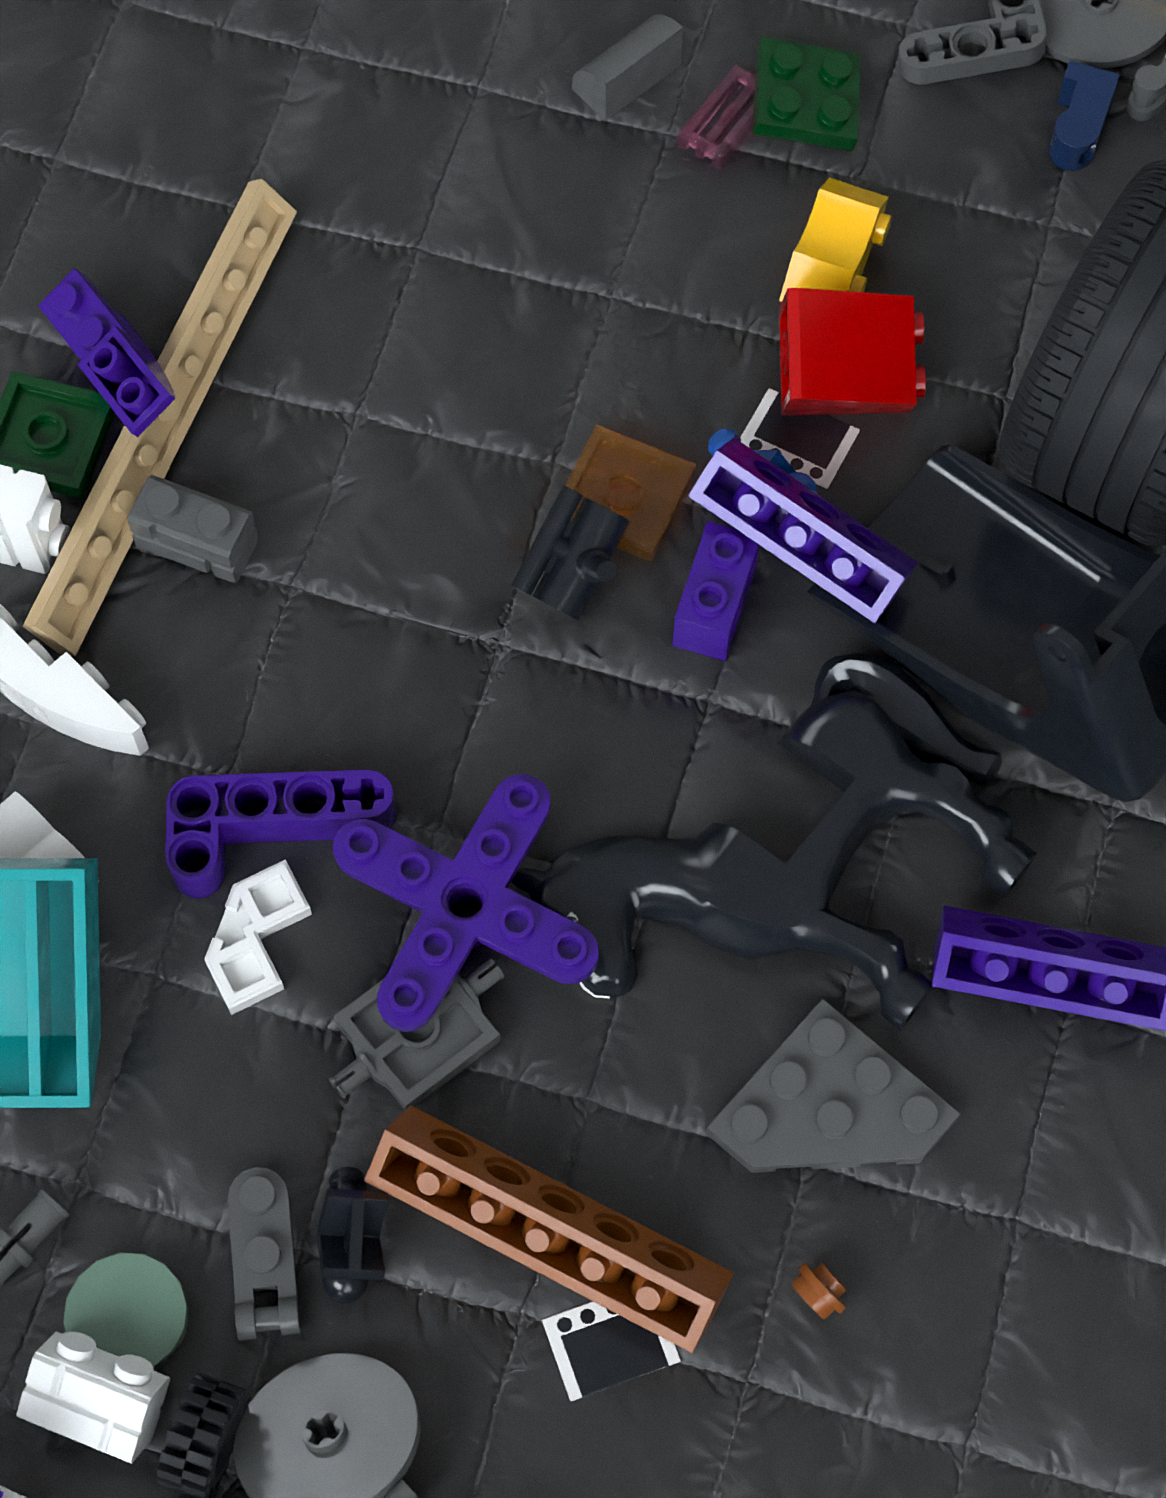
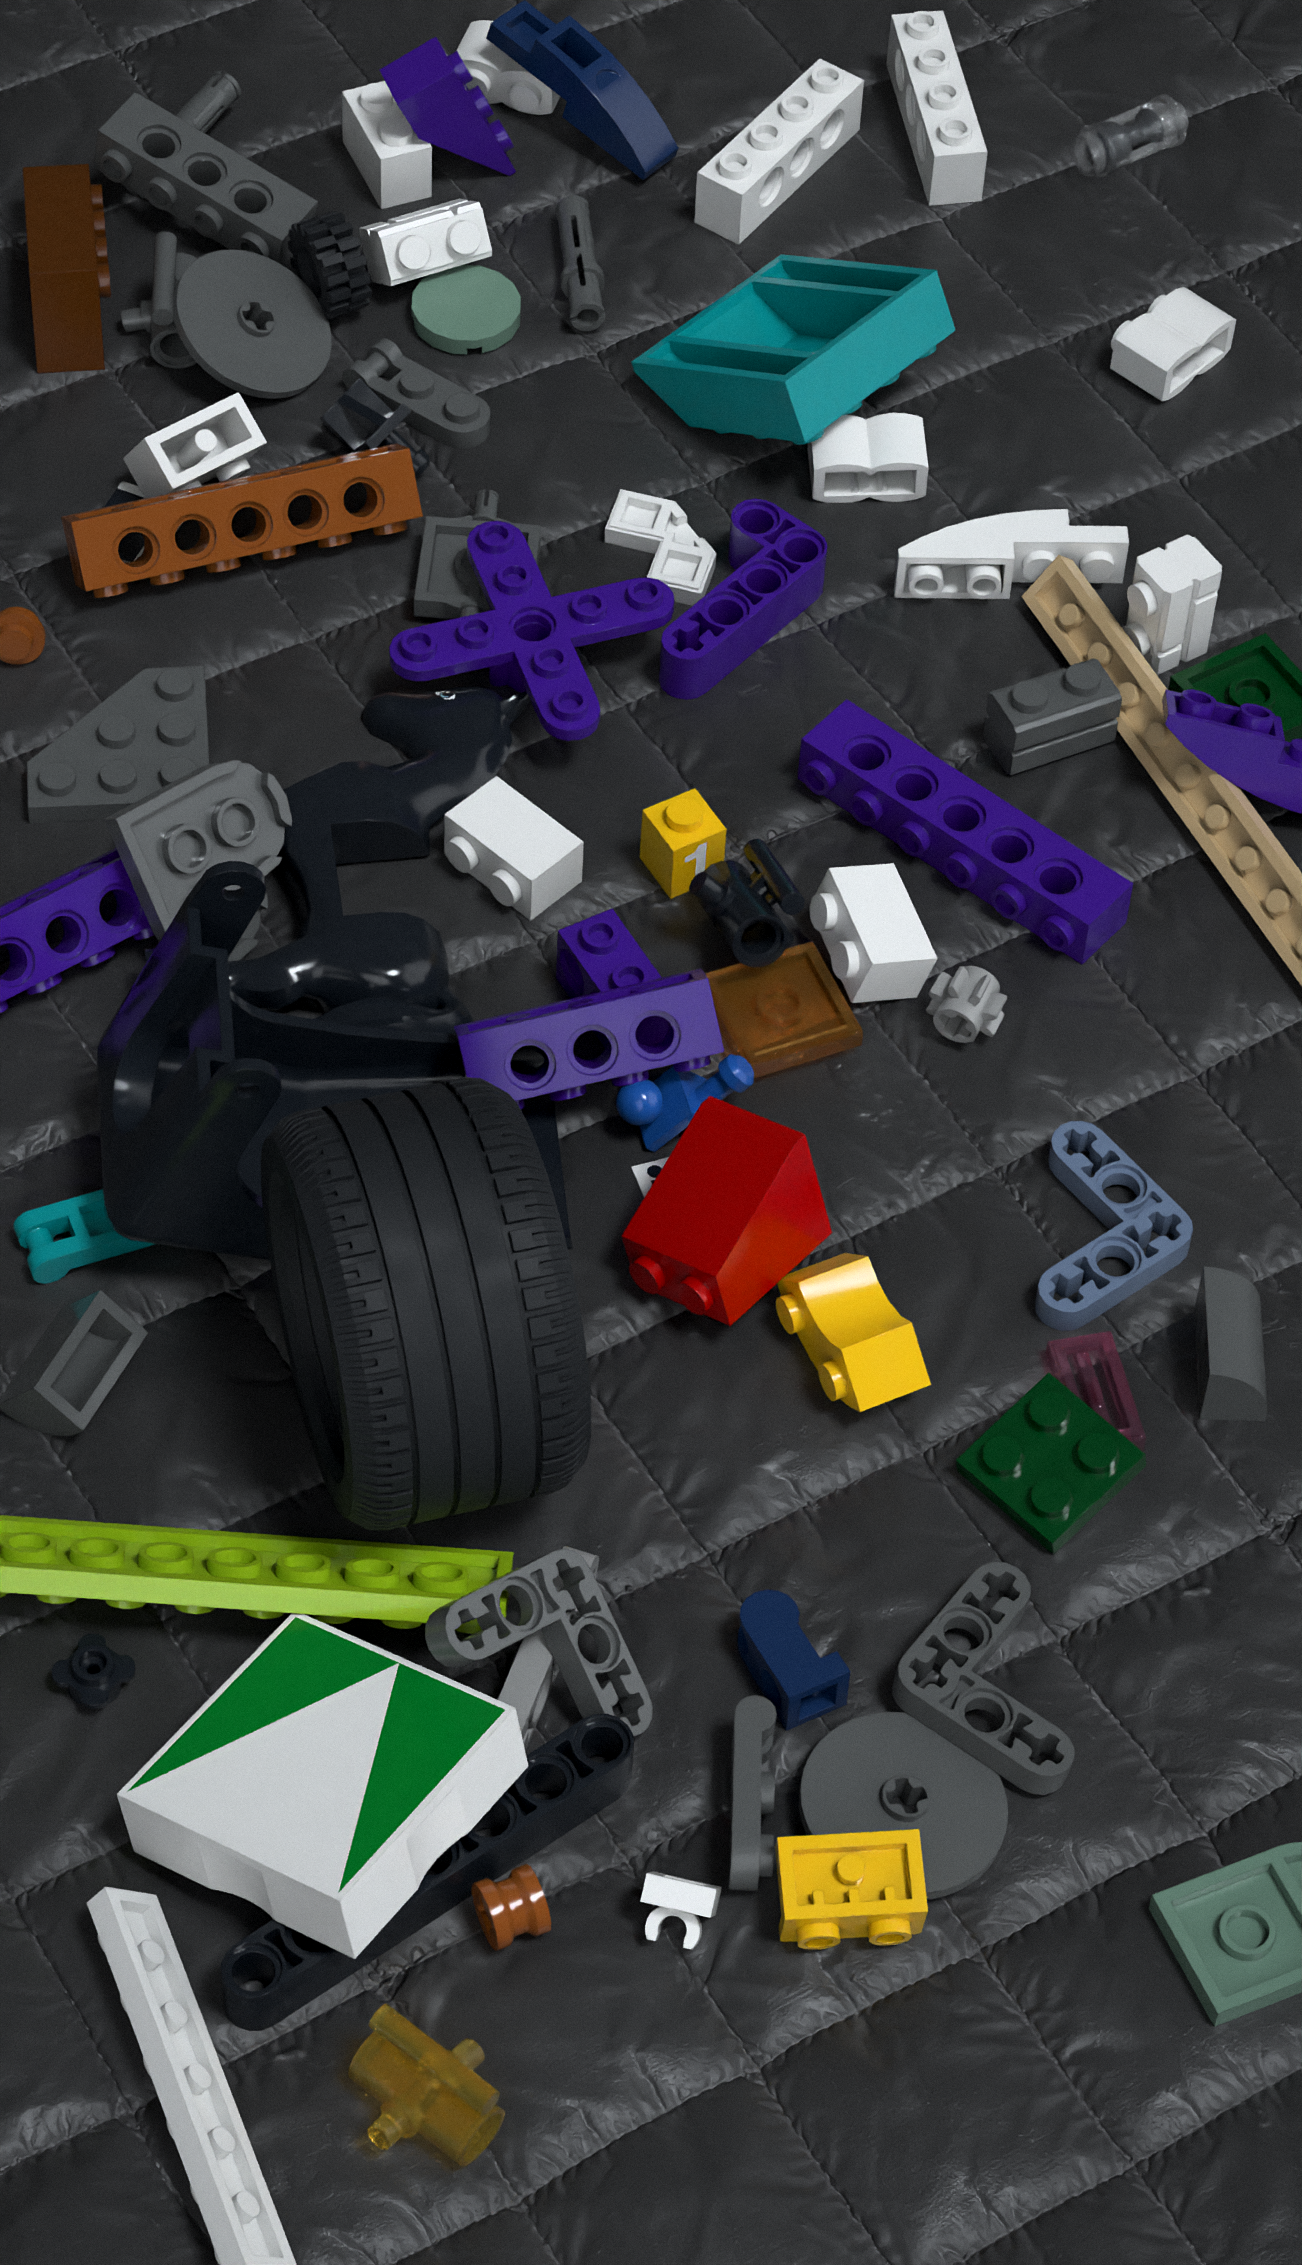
camera: 130 degrees right, 15 degrees down
(348, 635) = (964, 831): none -> dark purple brick
(511, 383) = (966, 1004): none -> light grey gear
(511, 477) = (872, 933): none -> white brick
(514, 1333) = (197, 449): none -> white brick
(549, 655) = (680, 840): none -> yellow brick
(582, 184) = (1127, 1223): none -> sand blue beam
(663, 760) = (513, 848): none -> white brick
(909, 900) = (193, 824): none -> dark grey plate

